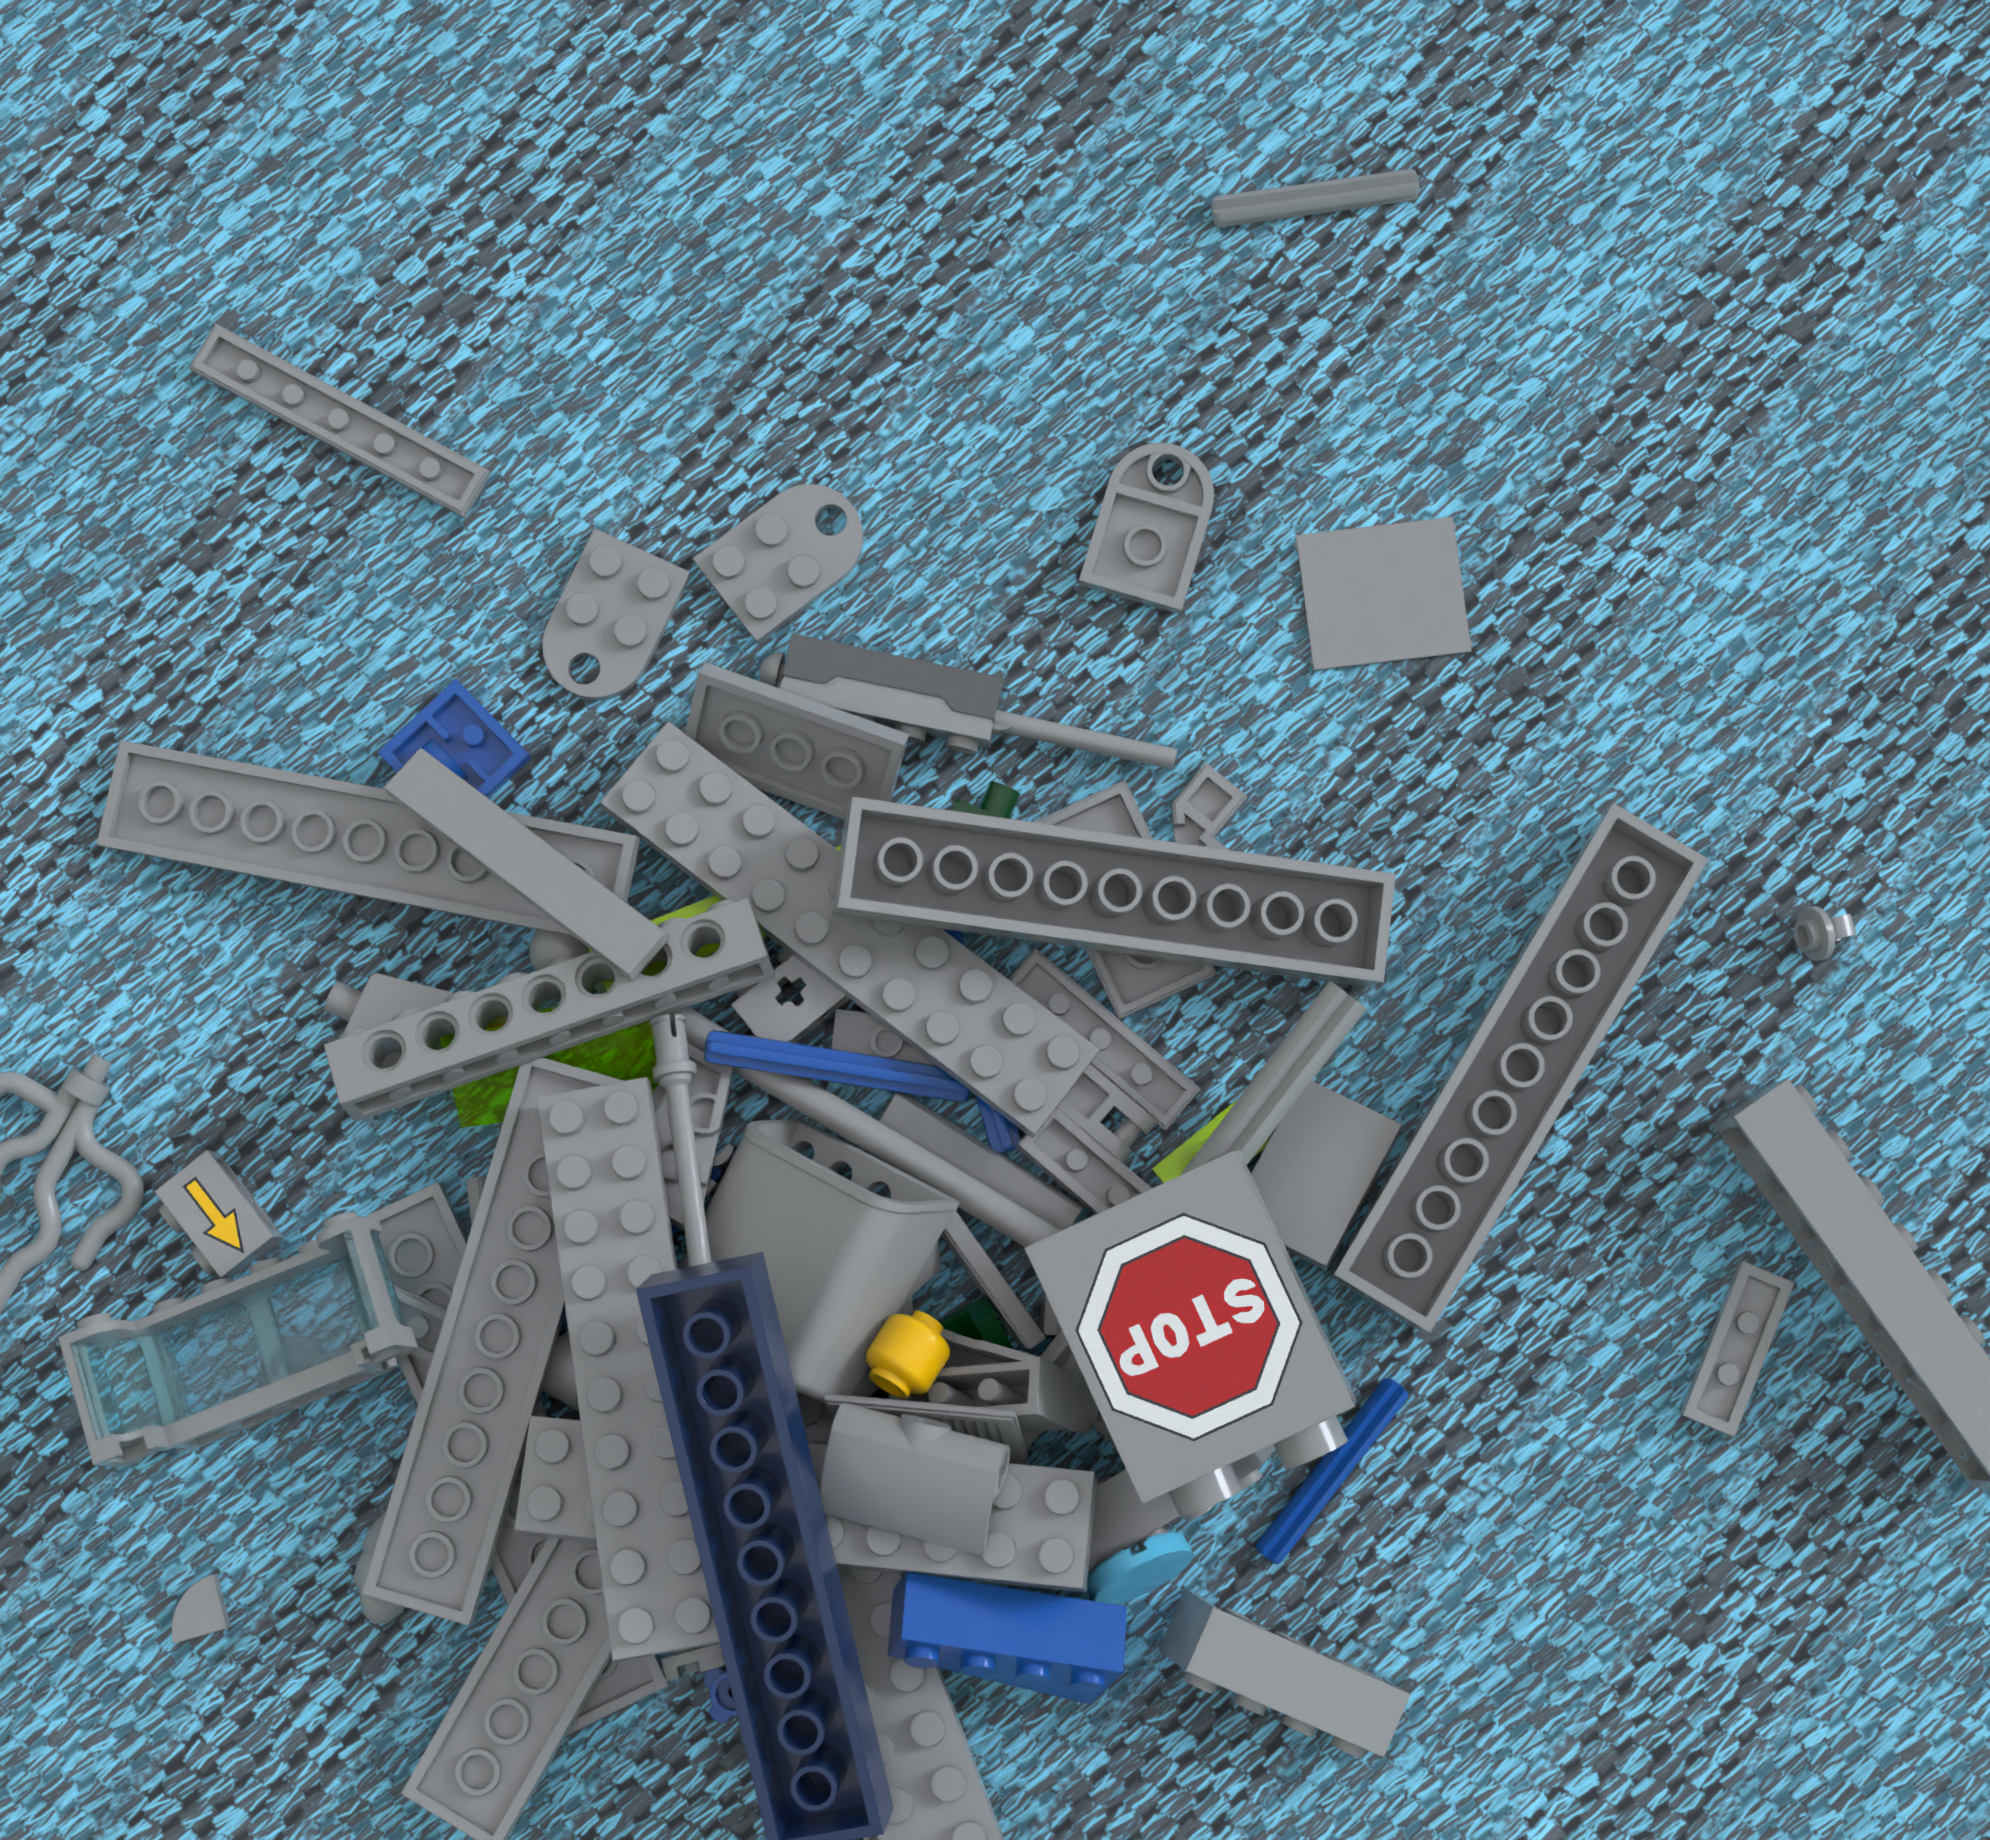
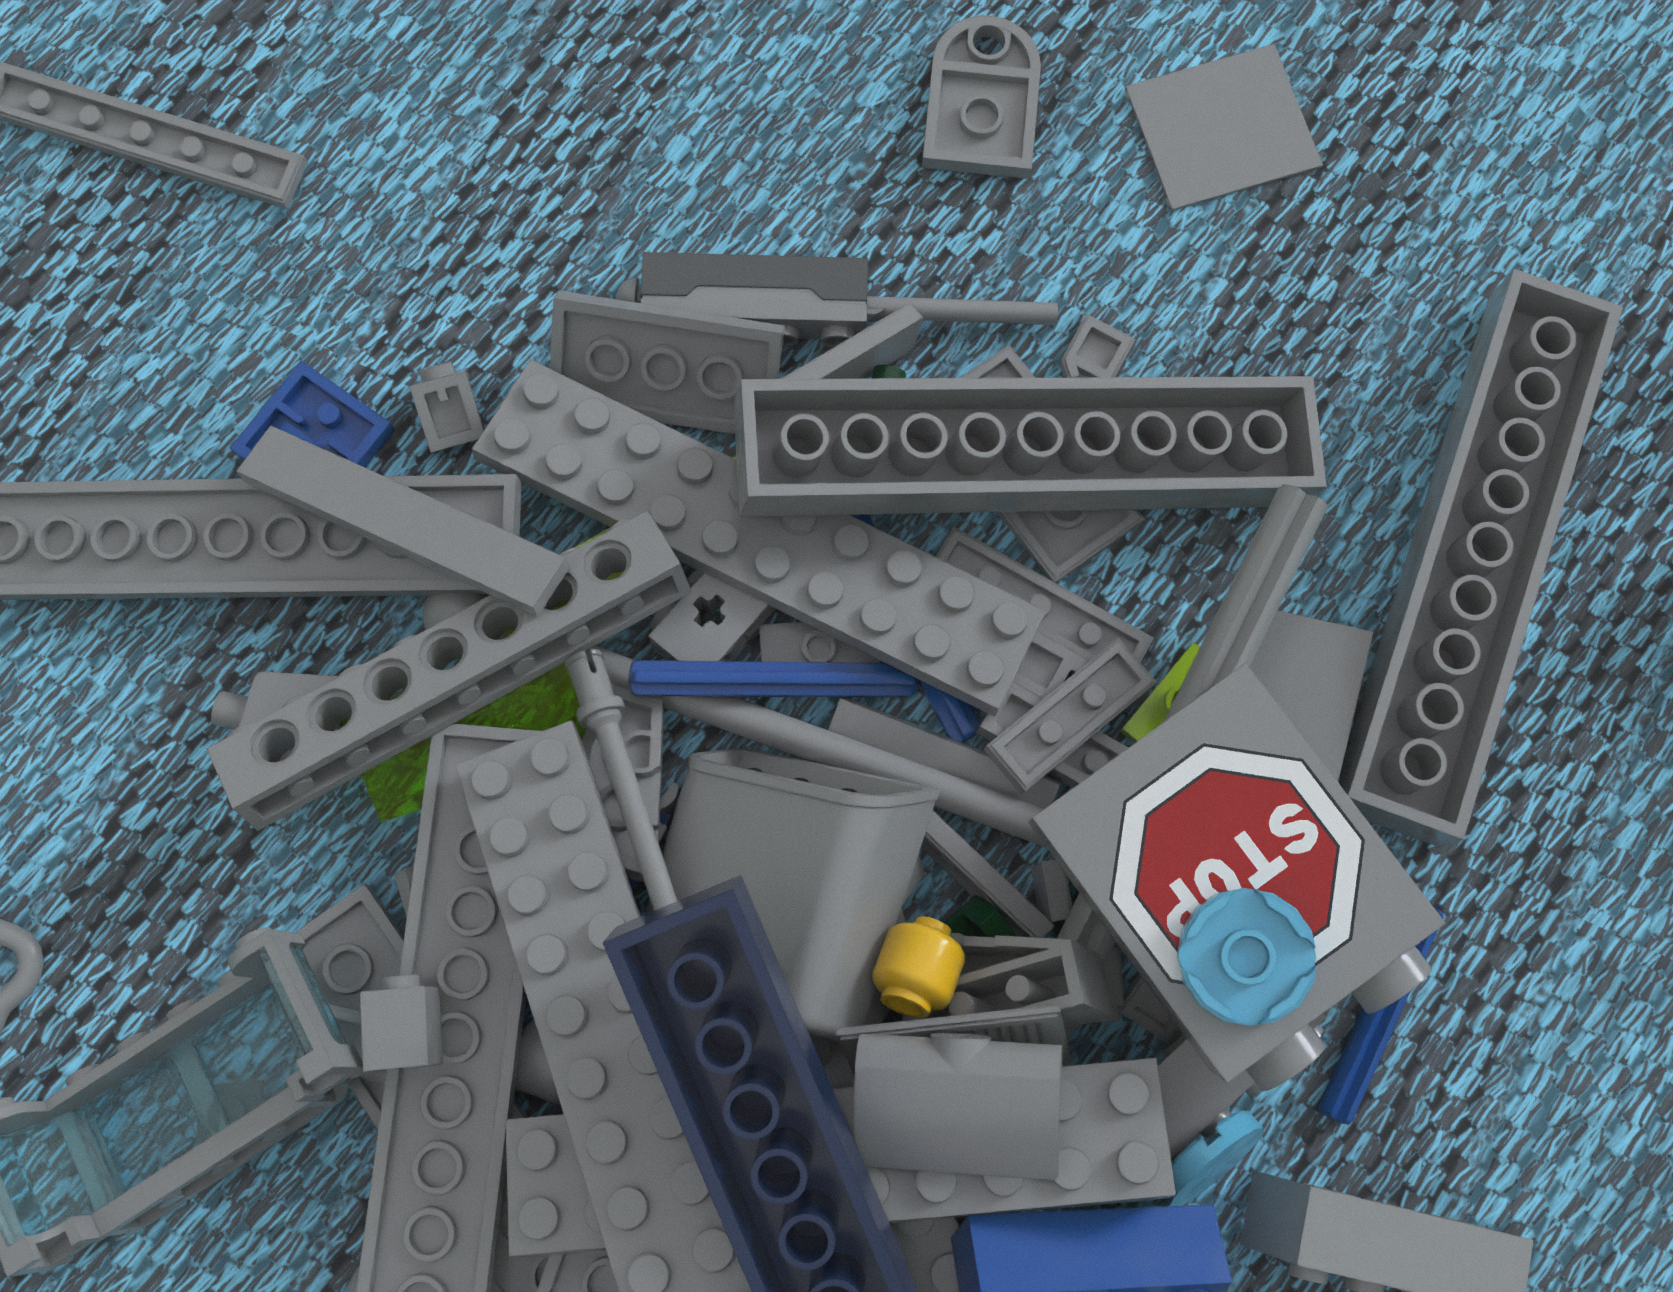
camera: 20 degrees left, 5 degrees down
(217, 1216) = (125, 966): light grey brick -> none
(454, 1317) = (401, 1024): none -> light grey brick
(583, 746) = (446, 406): none -> light grey bracket
(611, 612) = (454, 272): light grey plate -> none
(780, 560) = (617, 193): light grey plate -> none
(971, 772) = (873, 346): none -> light grey tile
(1102, 1150) = (1069, 716): none -> light grey tile
(1179, 1401) = (1247, 956): none -> medium azure tile

